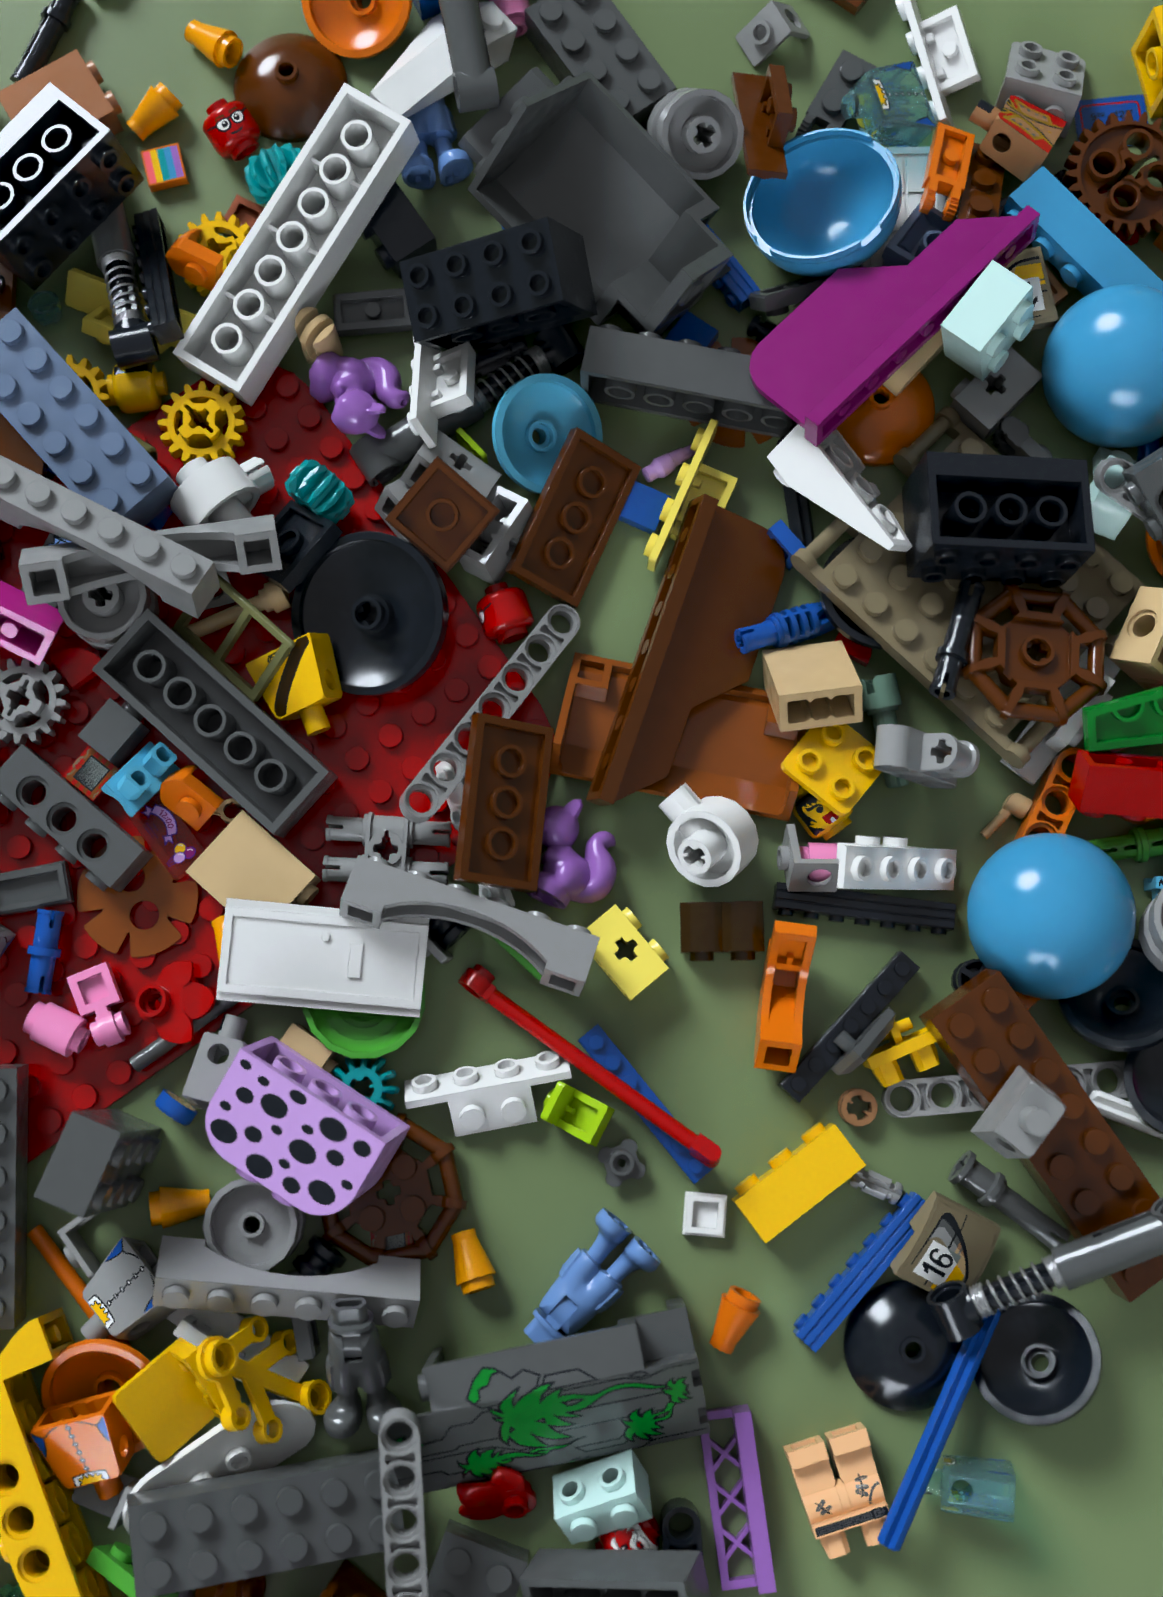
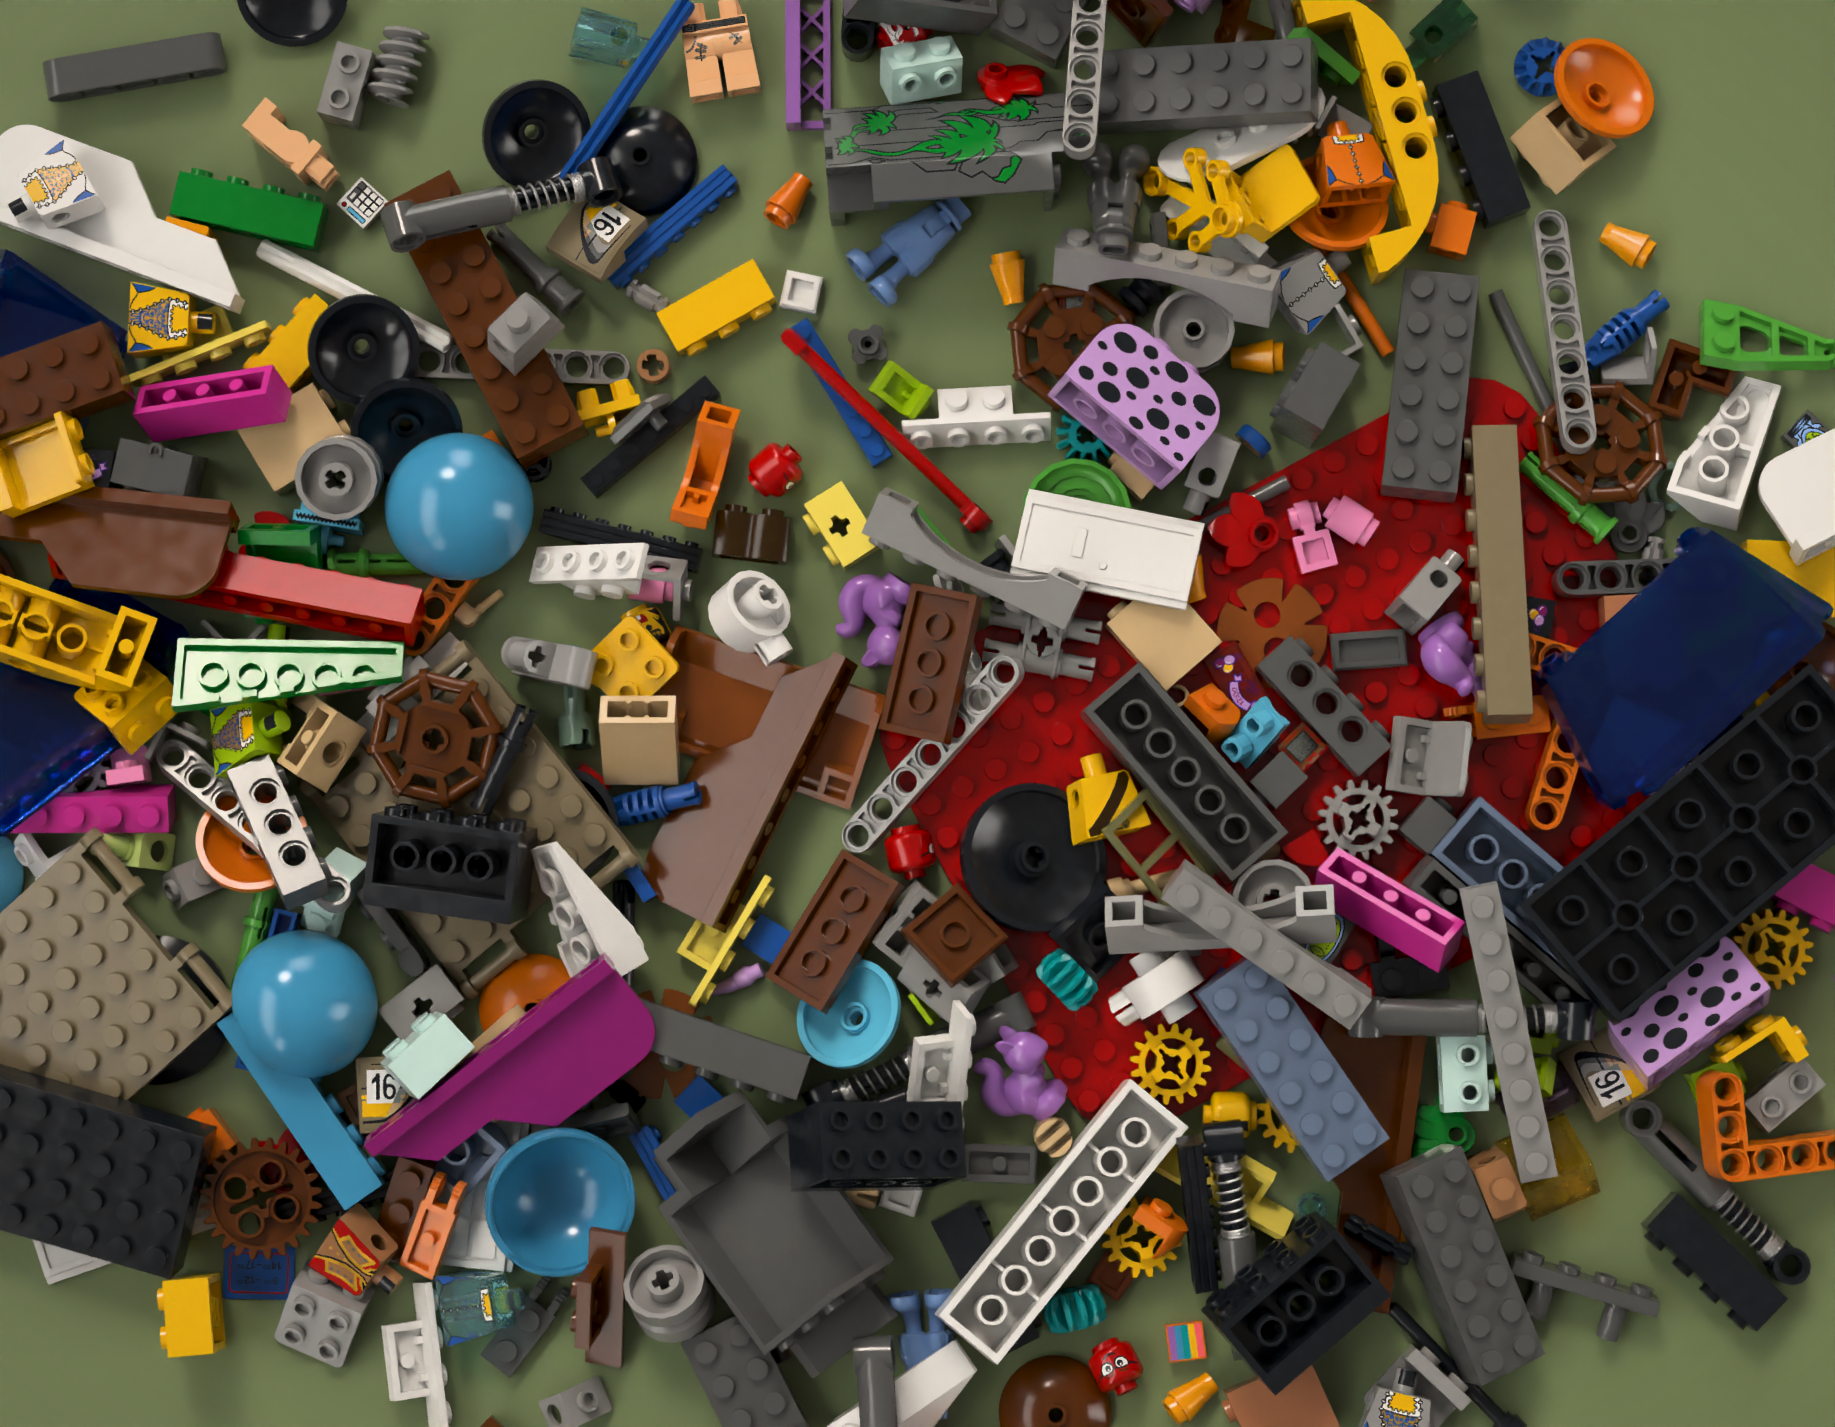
camera: 170 degrees left, 5 degrees up
(44, 951) = (1357, 591): blue pin -> none
(705, 1005) = (775, 469): none -> red head

